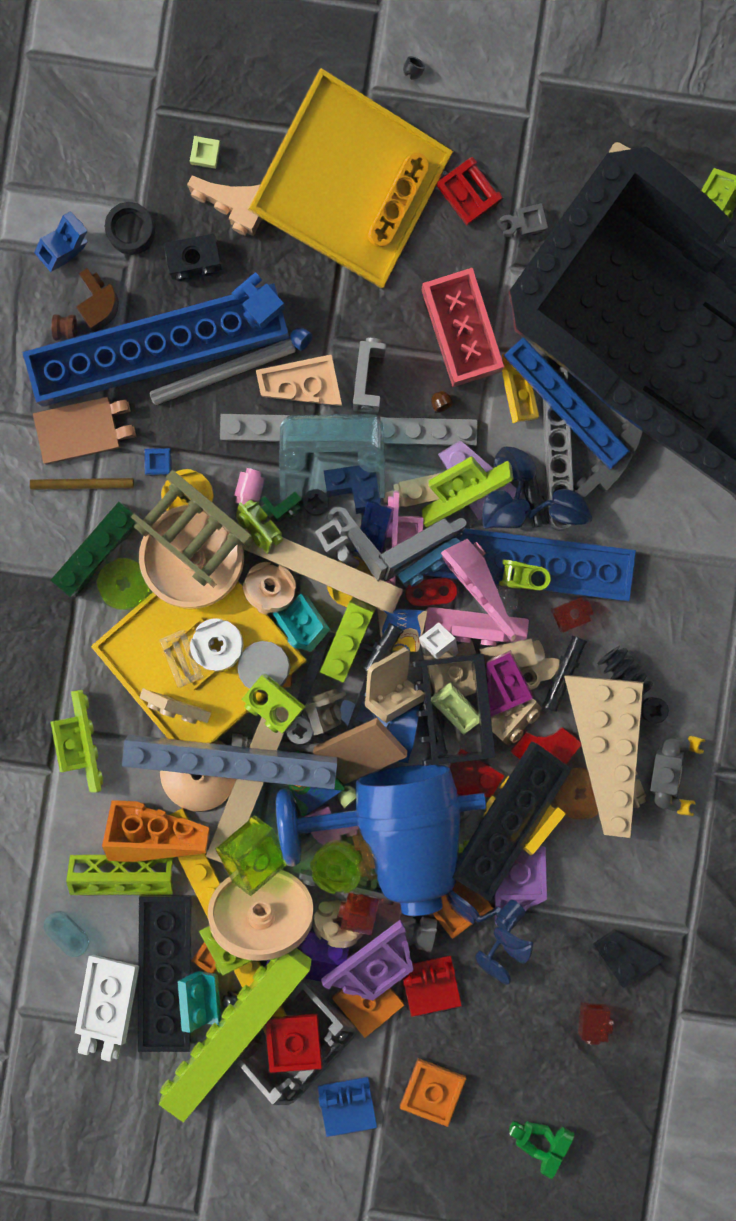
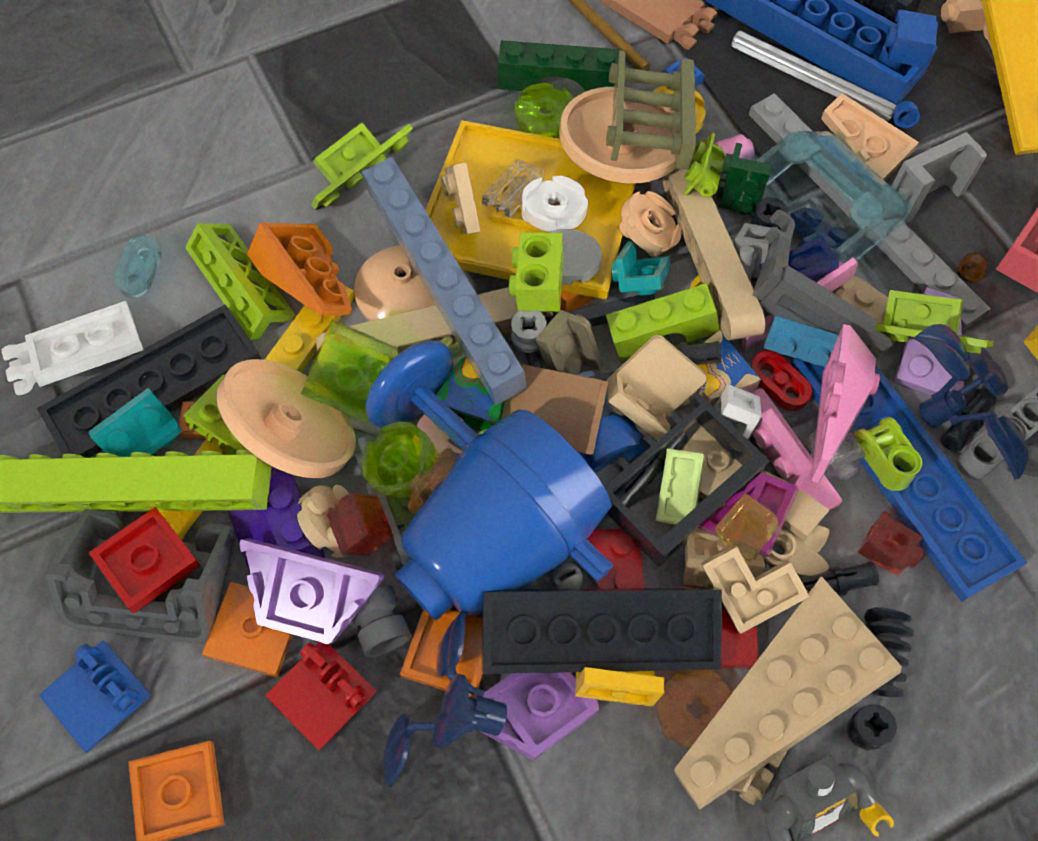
camera: 55 degrees right, 25 degrees down
(513, 700) = (747, 527): none -> clear yellow panel
(548, 724) = (750, 598): none -> tan plate

